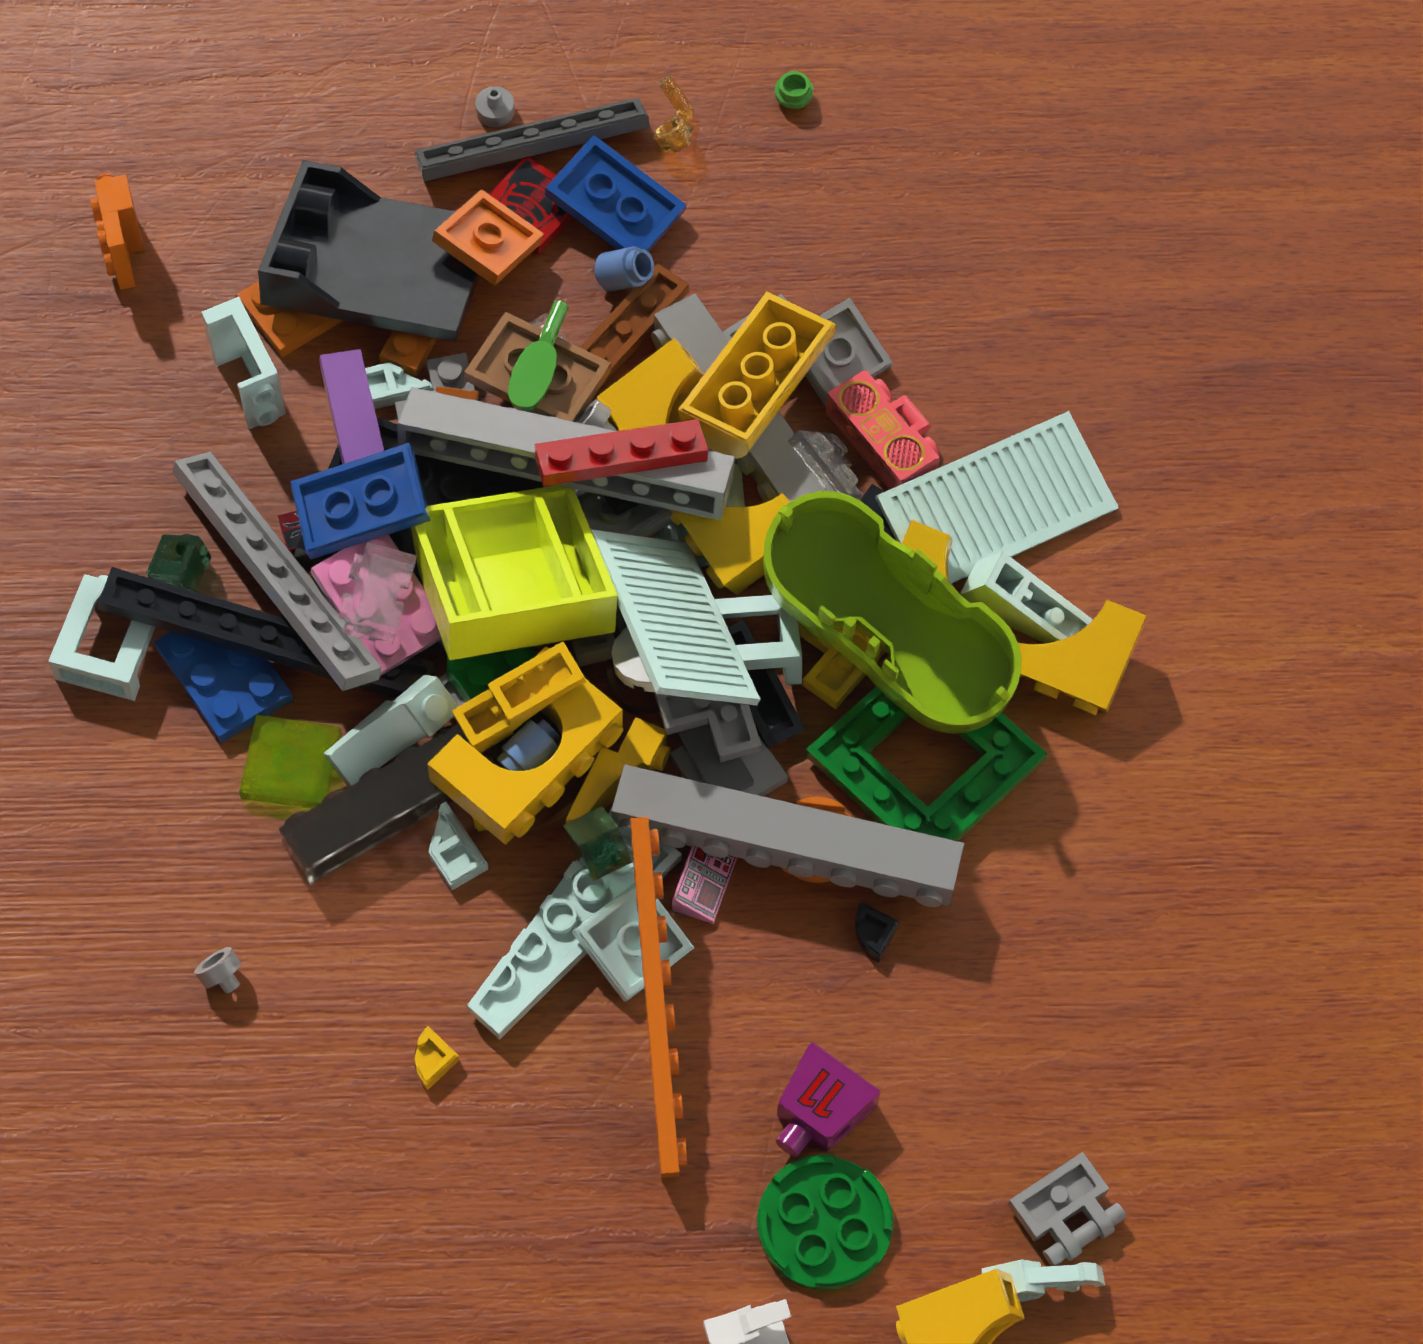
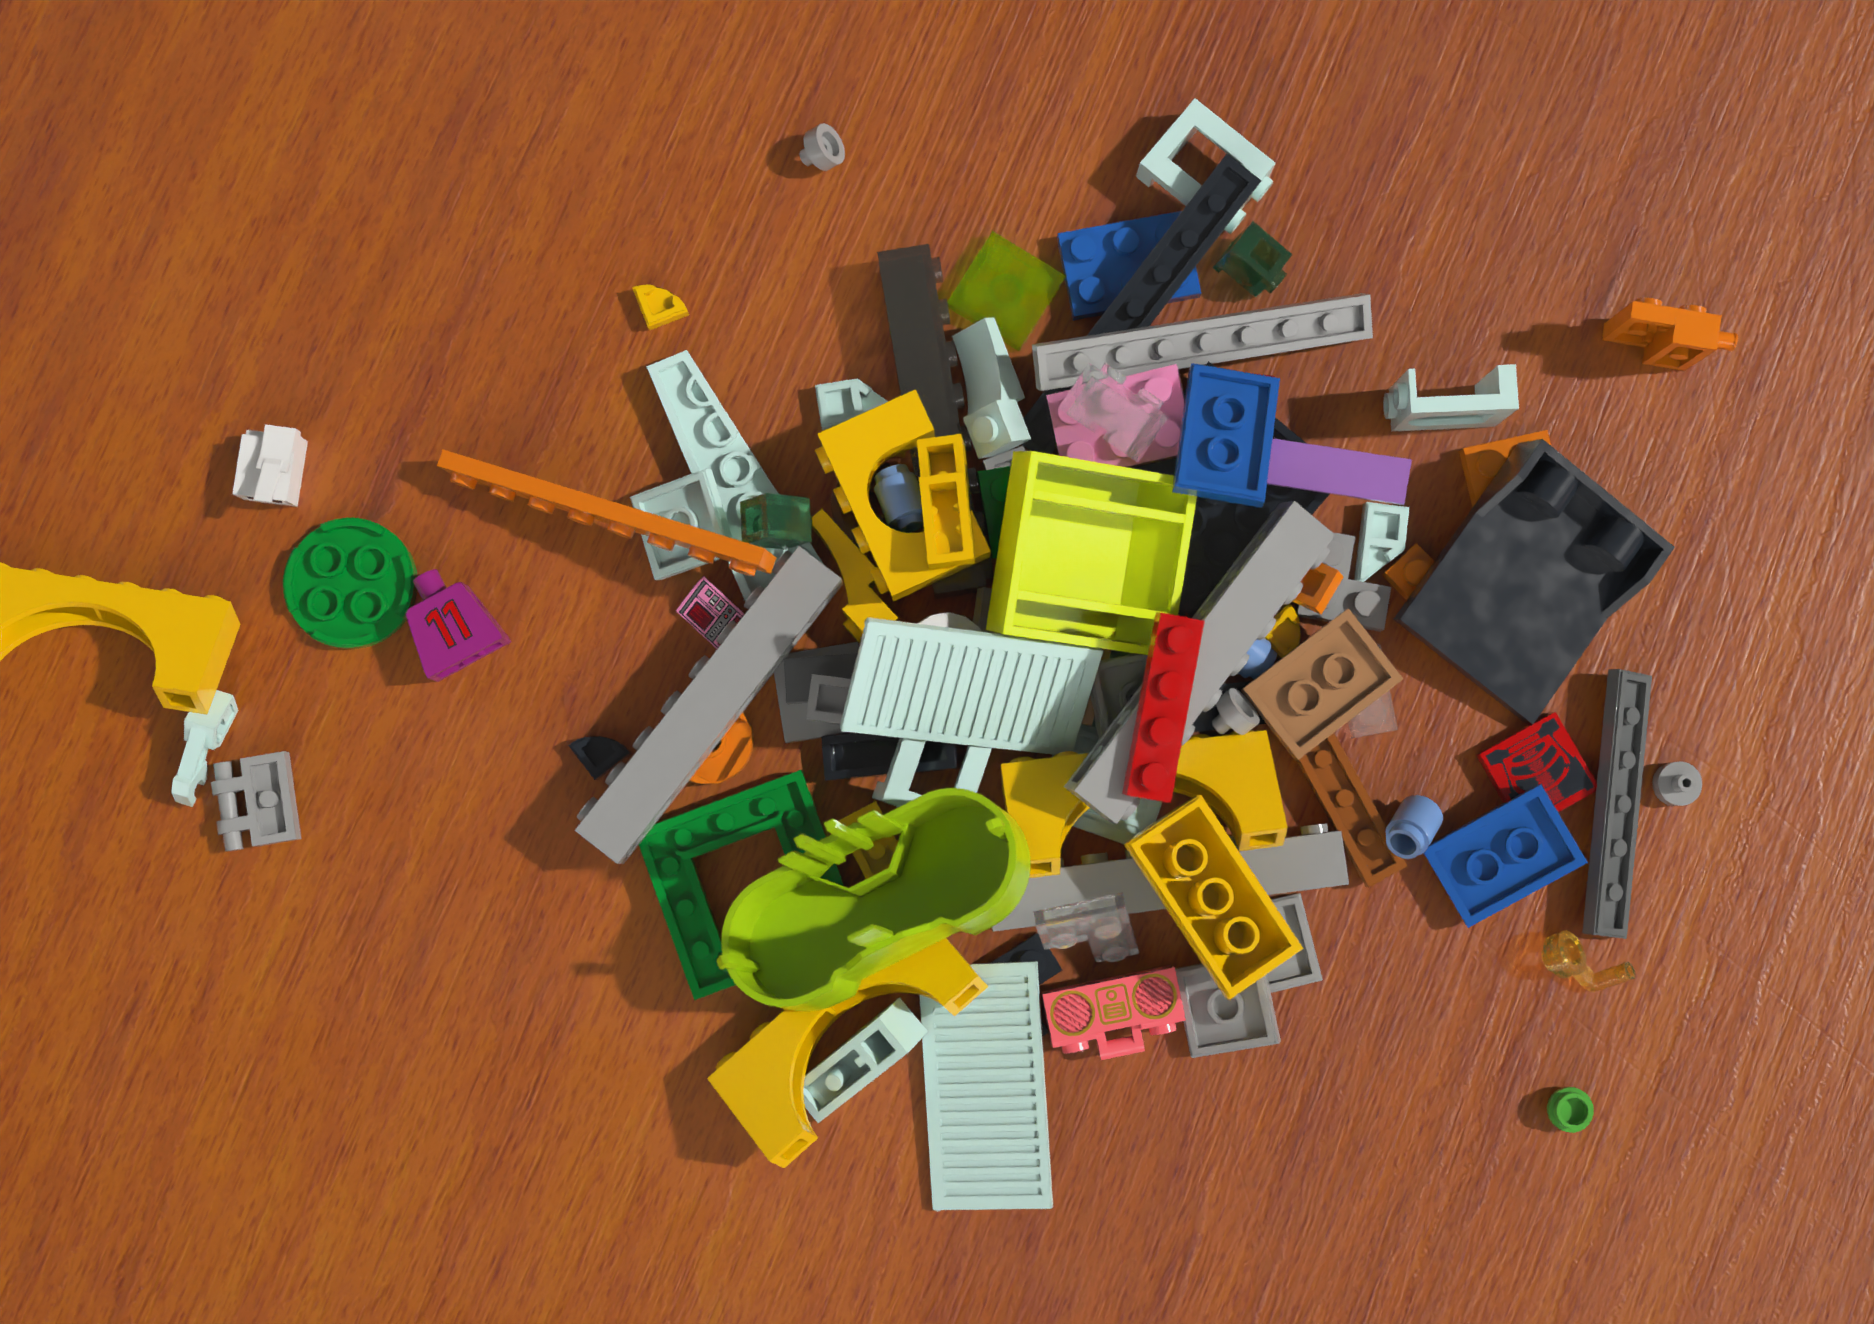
camera: 115 degrees right, 20 degrees up
(487, 237) = (1504, 700): orange plate -> none
(537, 364) = (1322, 680): bright green piece -> none

